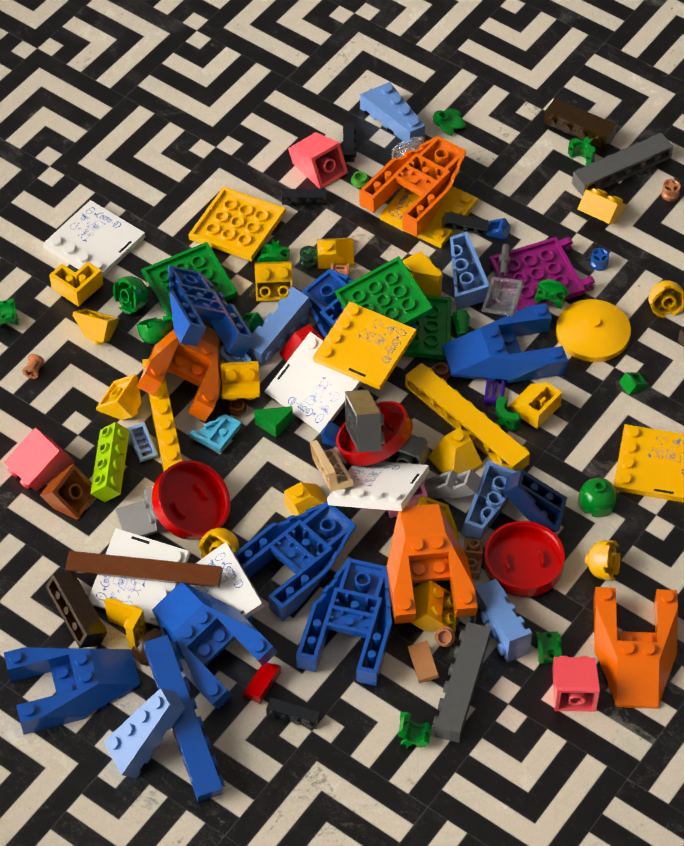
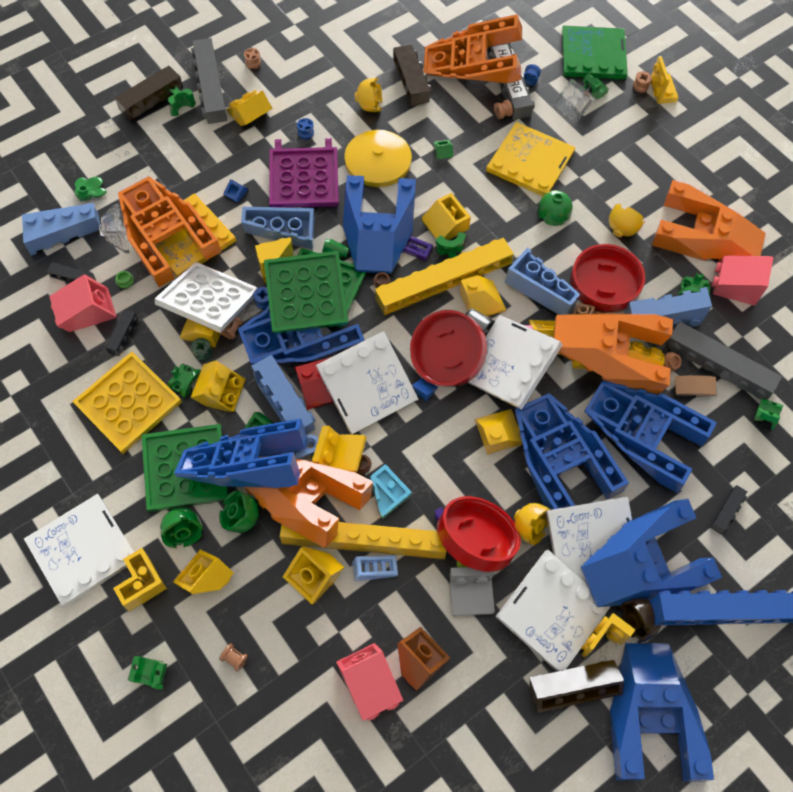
camera: 75 degrees left, 10 degrees up
(110, 462) = (396, 604): lime brick -> none
(143, 731) = (751, 651): wedge -> none
(144, 569) = (554, 603): reddish brown tile -> none
(262, 682) = (694, 532): red slope -> none
(274, 419) = (392, 434): green slope -> none
(327, 470) = (476, 399): tan fence -> none
(358, 237) = (206, 296): none -> white plate
(364, 345) = (356, 321): yellow plate -> none
(364, 421) = (449, 346): dark grey brick -> none
(453, 485) = (523, 301): light grey slope -> none
(465, 223) = (223, 210): black piece -> none
(502, 296) = (331, 201): clear slope -> none
(504, 260) = (281, 192): flat silver bar -> none
(535, 499) = (561, 247): dark blue wedge -> none
(552, 291) = (333, 169): green piece -> none

